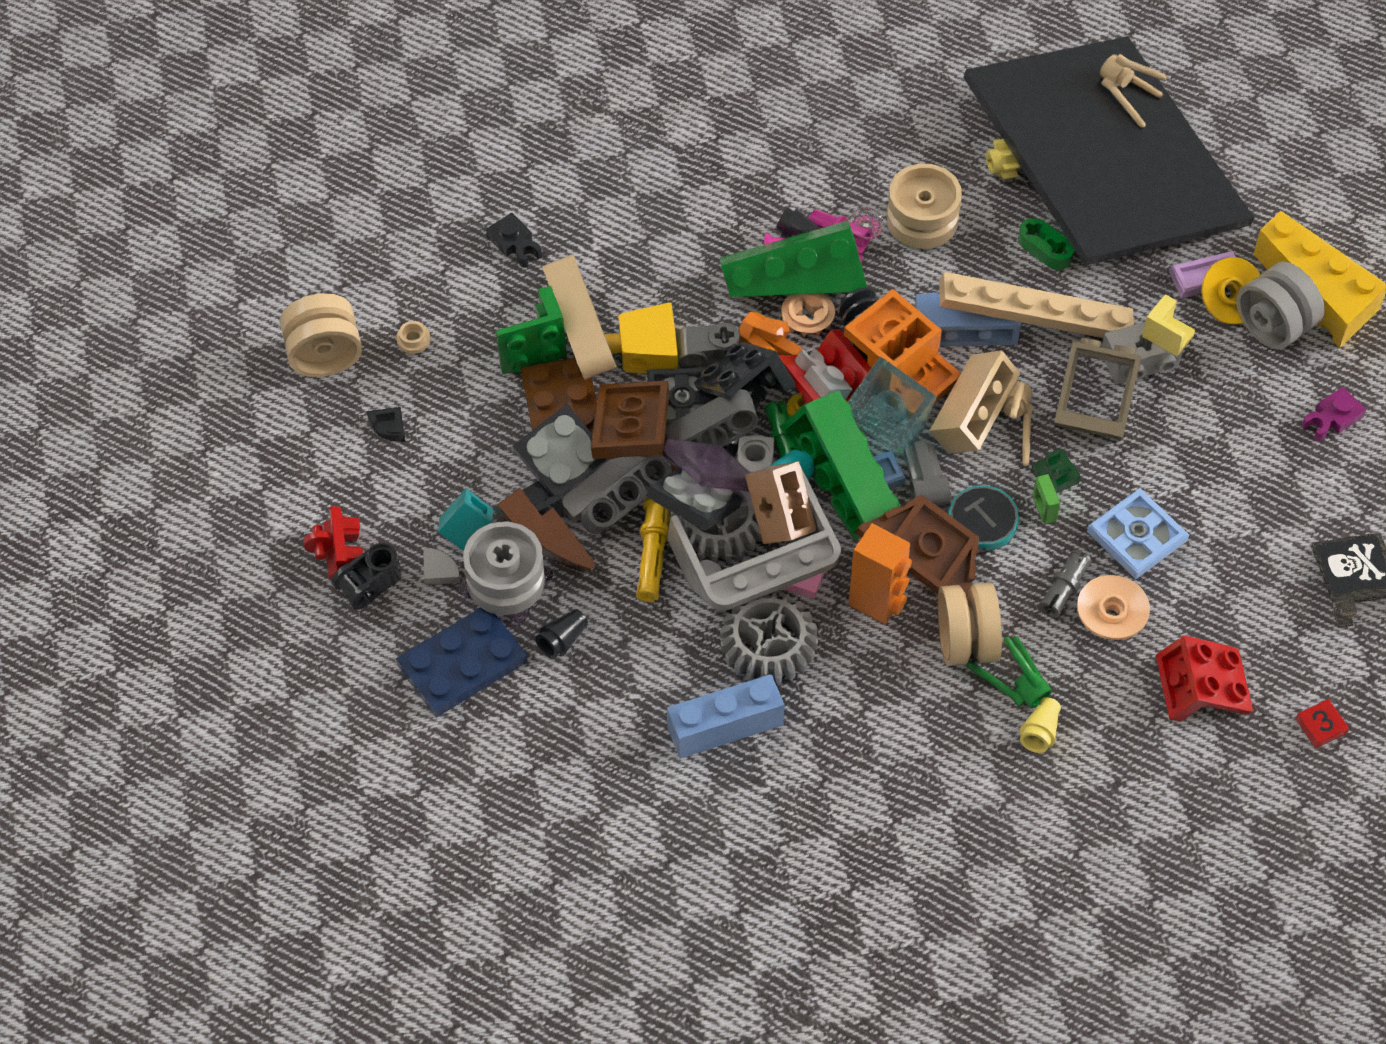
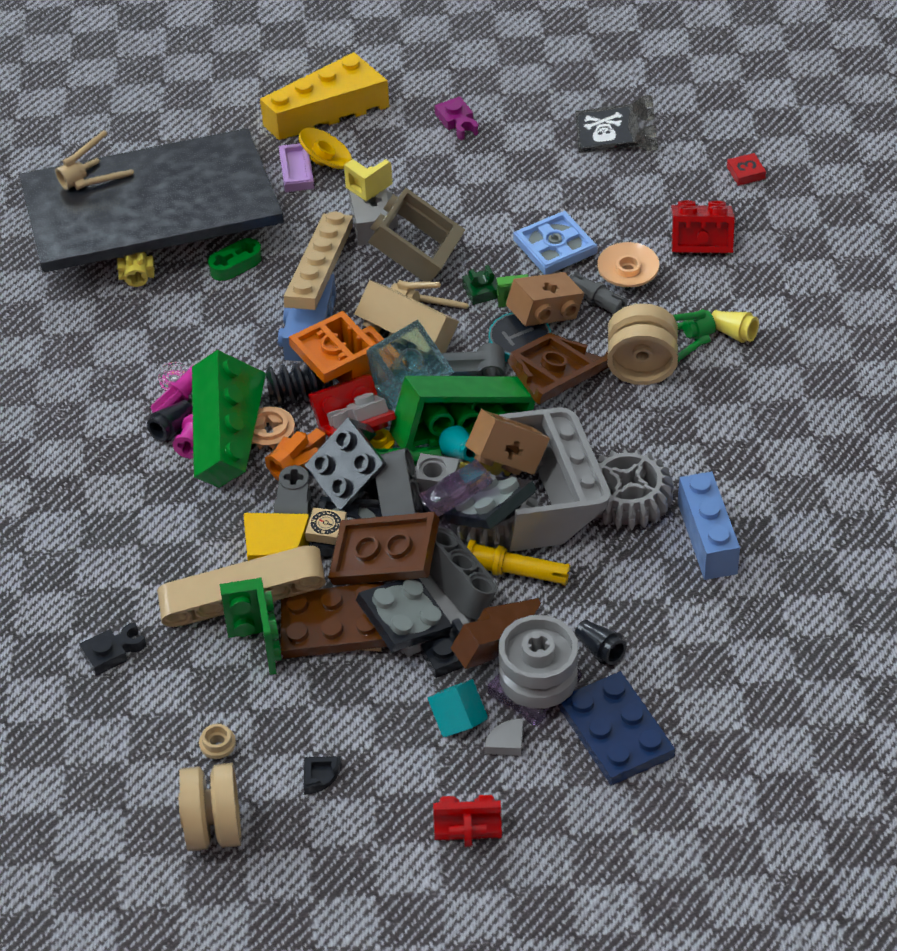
camera: 80 degrees left, 10 degrees down
(366, 577) = (517, 794): black piece -> none
(671, 370) = (324, 525): none -> tan tile
(879, 574) = (592, 384): orange brick -> none
(923, 206) = (178, 324): tan wheel -> none
(1029, 509) = (544, 298): none -> medium nougat brick
(1280, 305) = (356, 116): light grey wheel -> none

